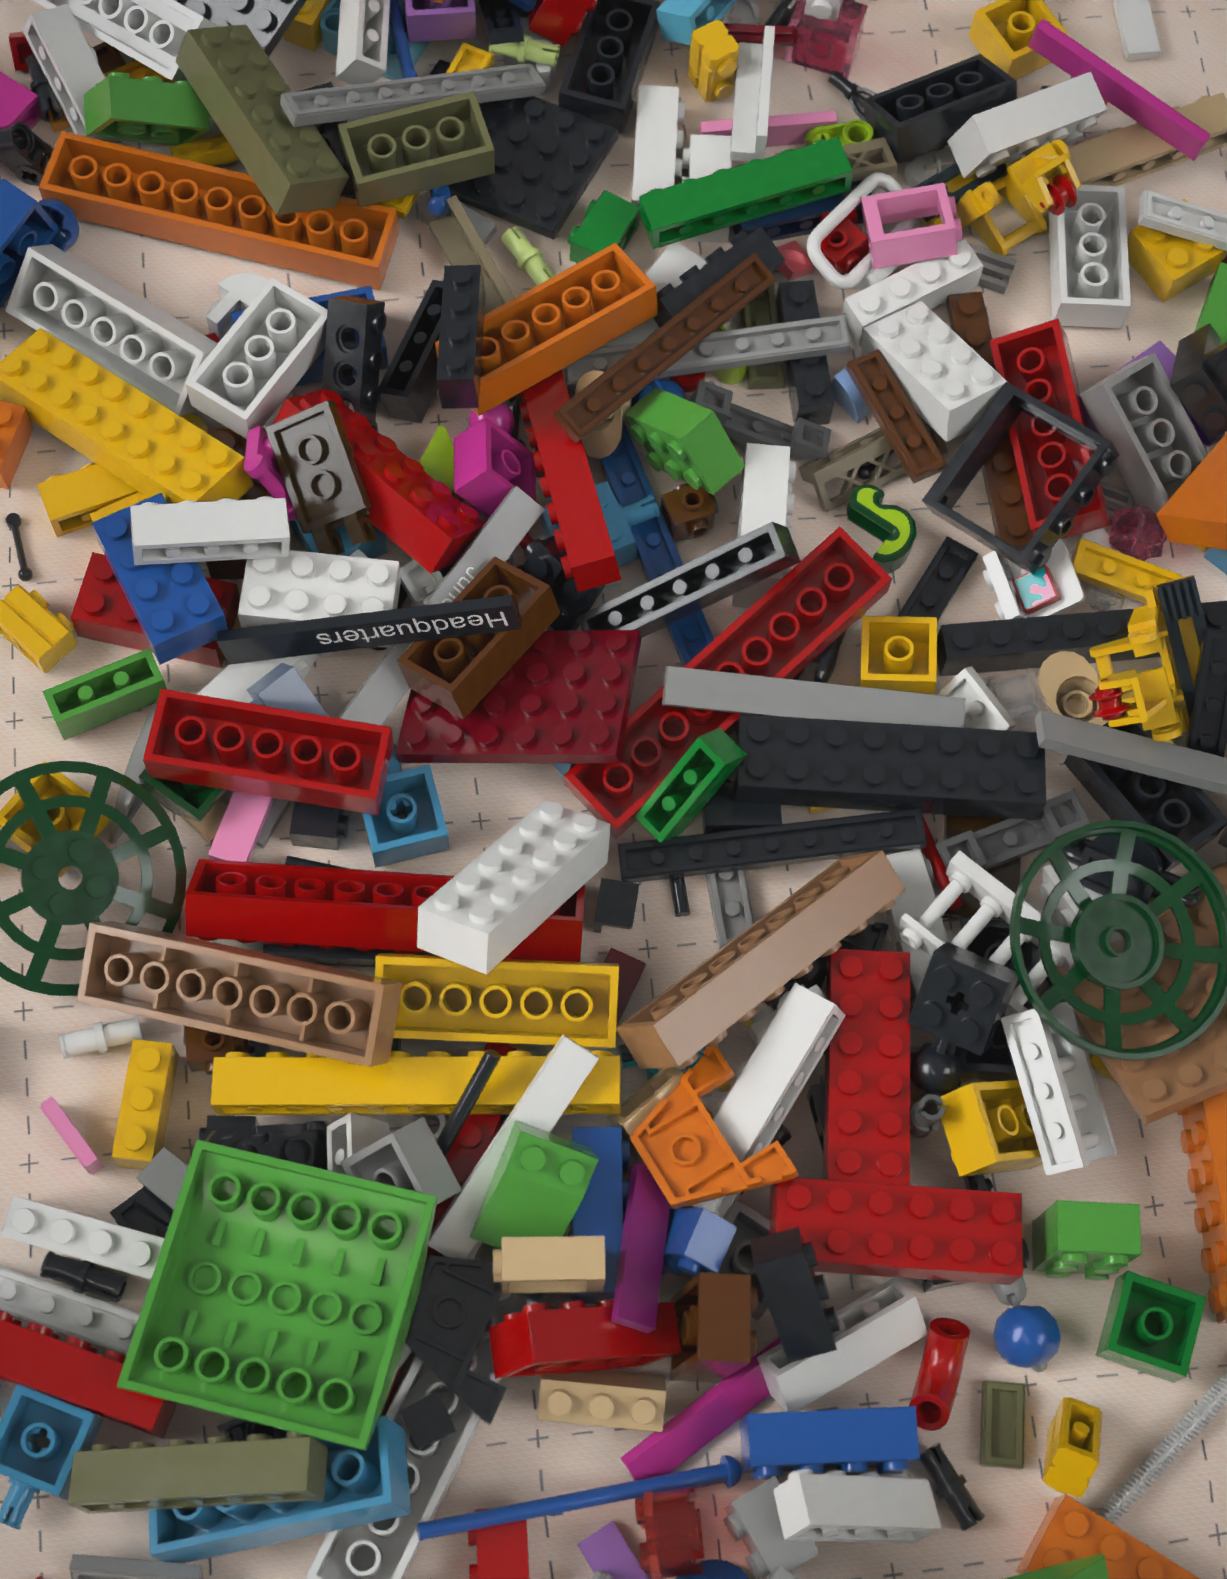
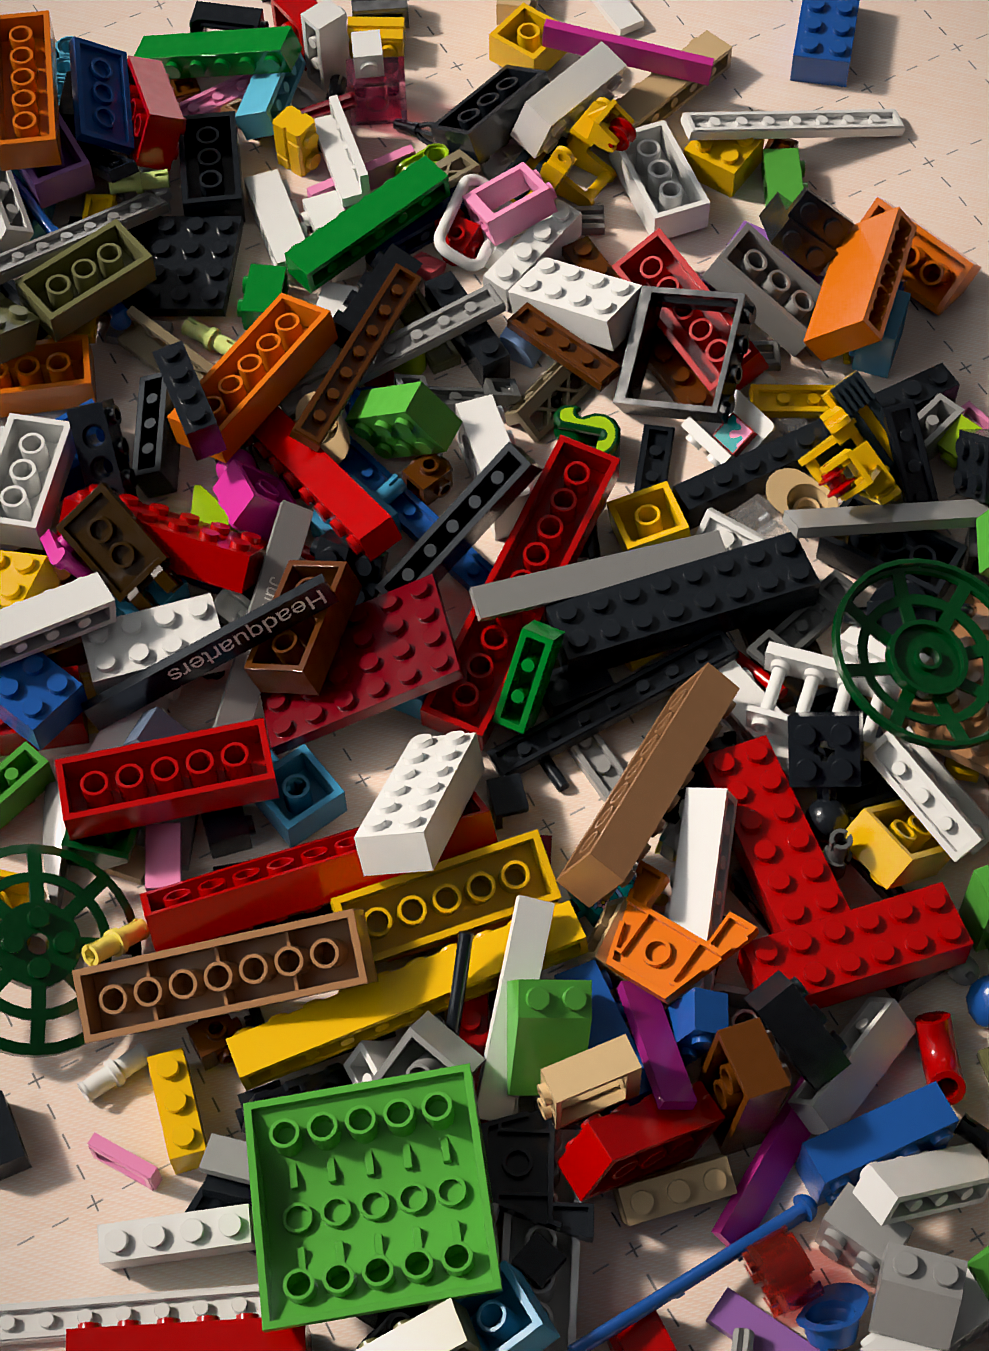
camera: 15 degrees left, 10 degrees down
(83, 1276) = (184, 1274): black pin -> none
(149, 904) = (115, 942): none -> light yellow pin
(1137, 532) = (793, 364): clear pink brick -> none

